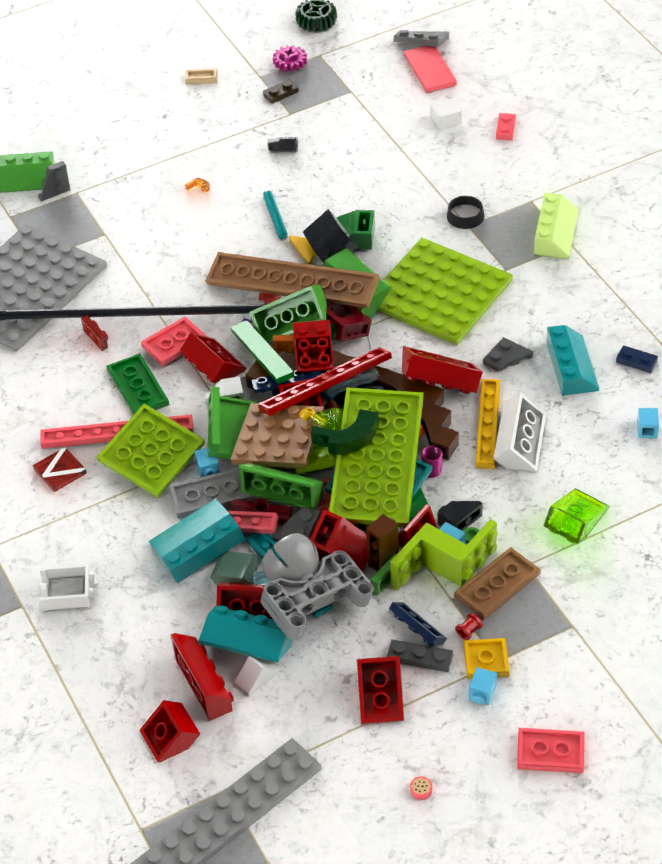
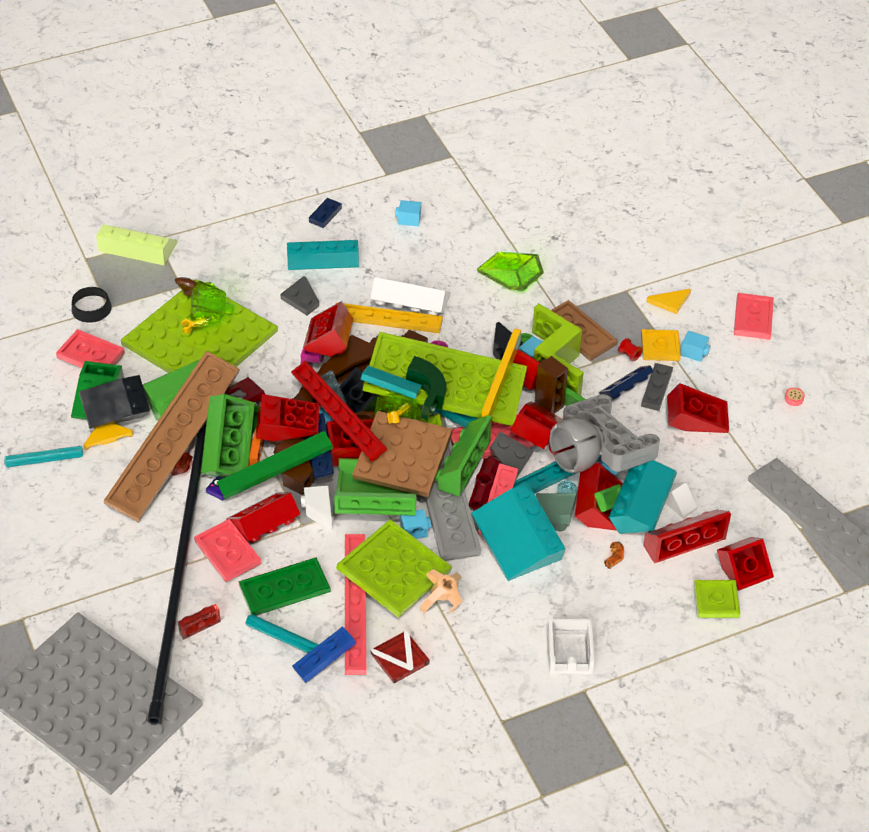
camera: 90 degrees left, 0 degrees up
(55, 413) = (324, 654): none -> blue plate
(82, 389) = (280, 633): none -> teal axle
(120, 482) = (444, 588): none -> light nougat piece
(124, 707) = (716, 599): none -> lime plate
(180, 624) = (617, 555): none -> clear orange arm
(236, 600) = (607, 497): none -> bright green tile
(349, 404) = (391, 382): none -> teal tile
(376, 493) = (502, 373): none -> yellow tile
(401, 221) = (86, 347): none -> coral plate
(463, 275) = (207, 303): none -> clear neon green torso
(560, 667) = (670, 301): none -> yellow tile

